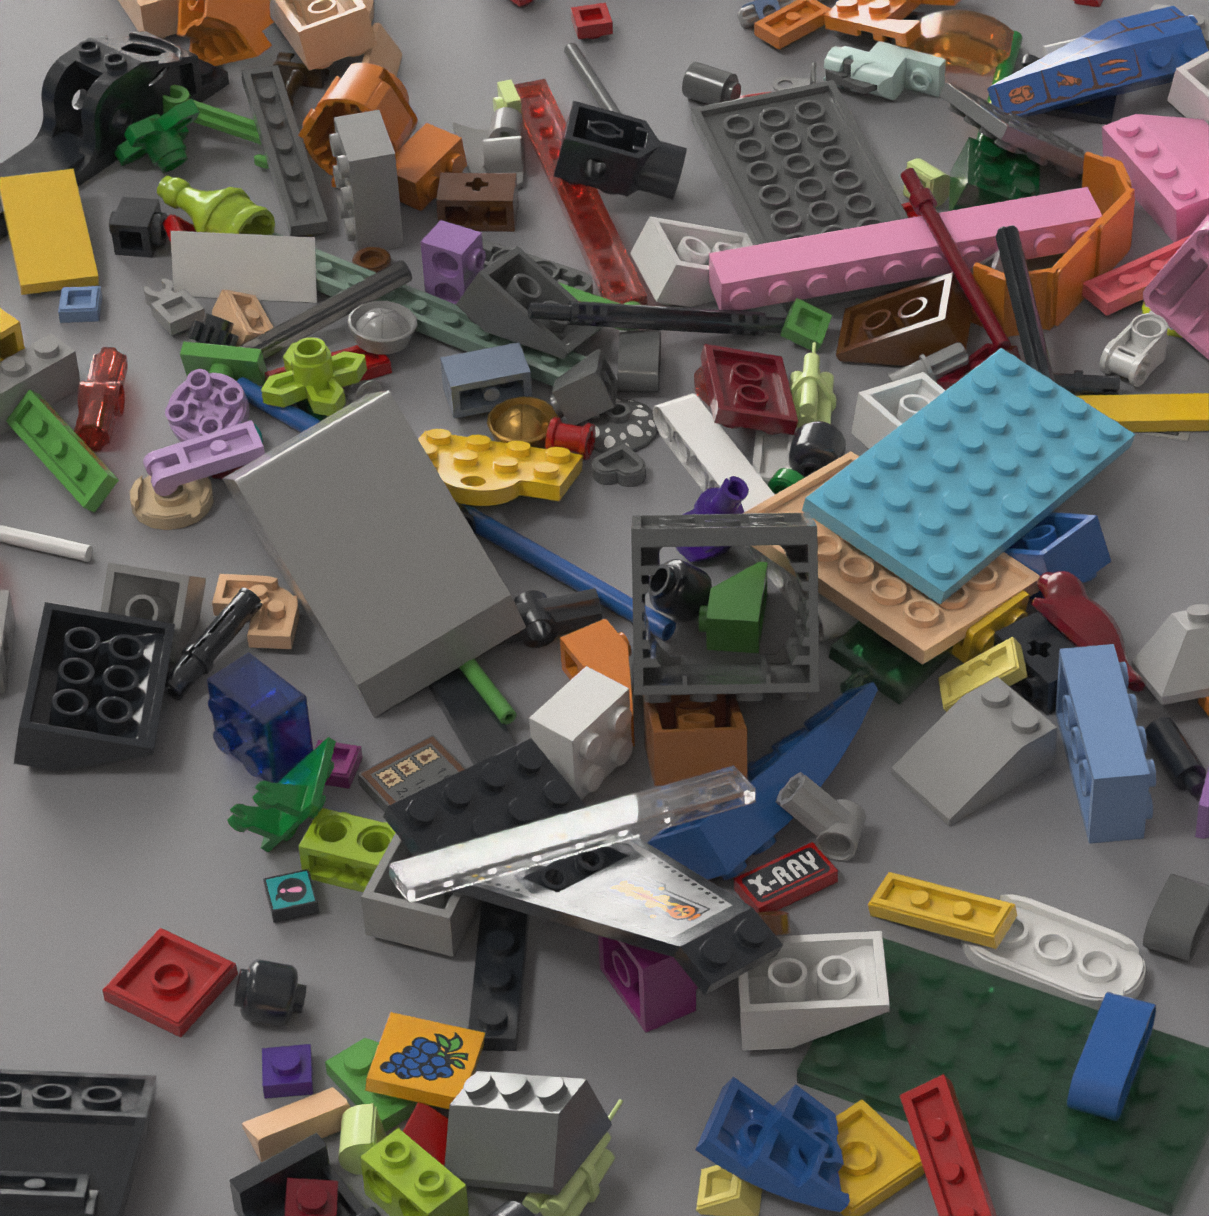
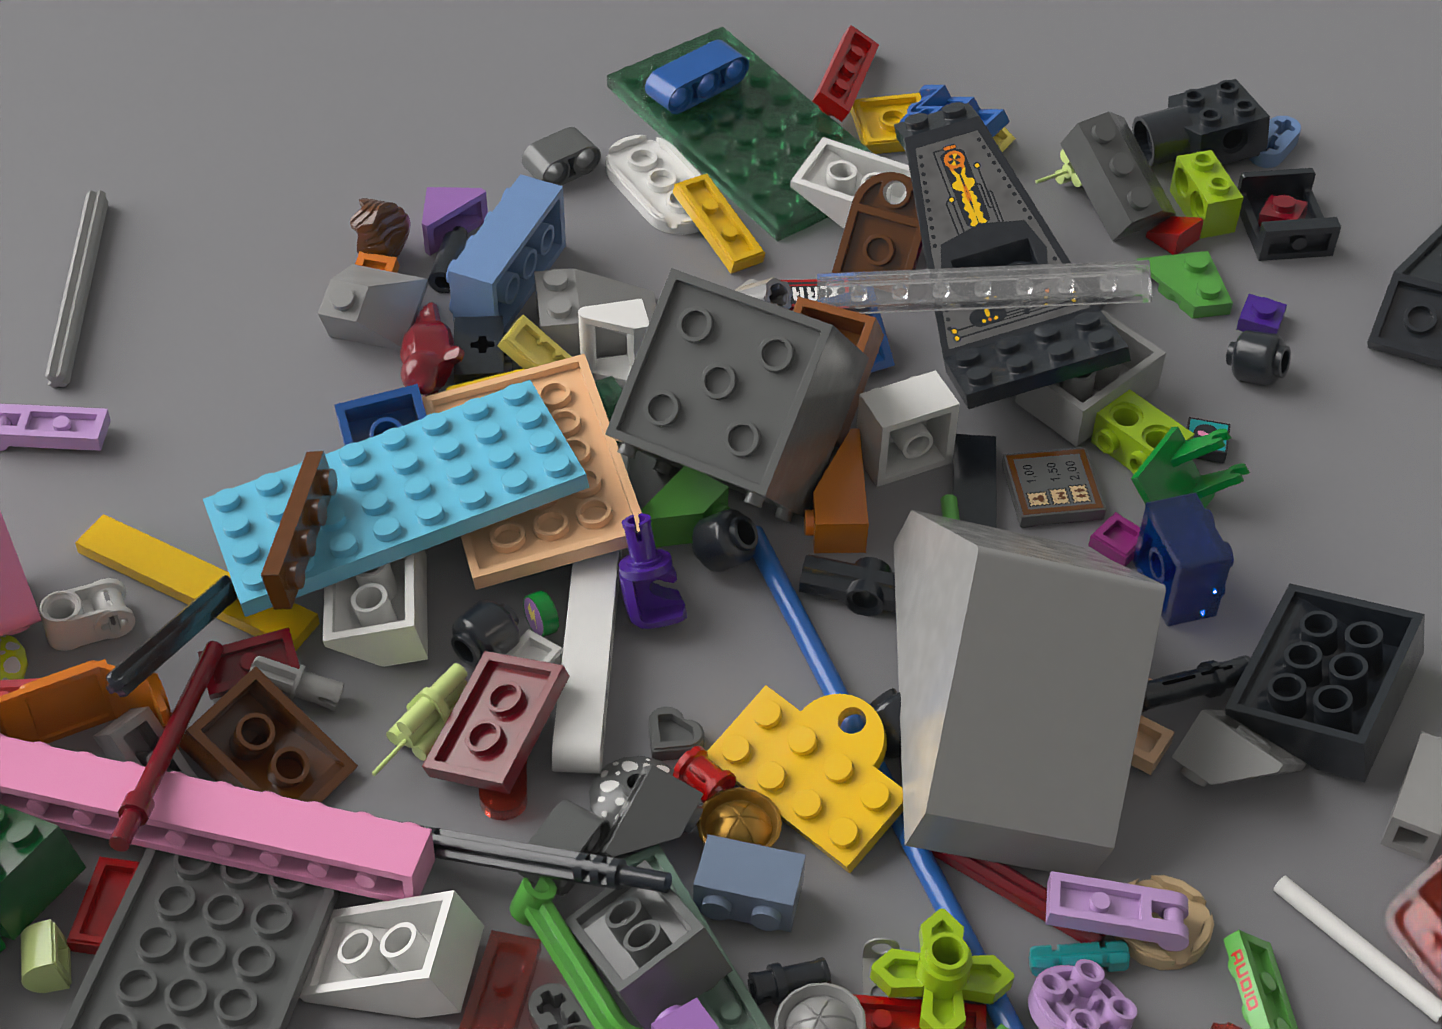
camera: 155 degrees left, 5 degrees up
(170, 982) = (1331, 415): red tile -> none
(295, 1122) = (1269, 275): light nougat slope -> none
(359, 1132) = (1229, 241): yellowish green brick -> none
(423, 1060) = (1173, 256): light orange tile -> none
(424, 355) = (779, 981): none -> black pin
(806, 324) = (363, 799): bright green plate -> none
(897, 698) = (619, 316): none -> white tile
(996, 376) = (298, 530): none -> plate
(1082, 384) = (157, 598): black pin -> none

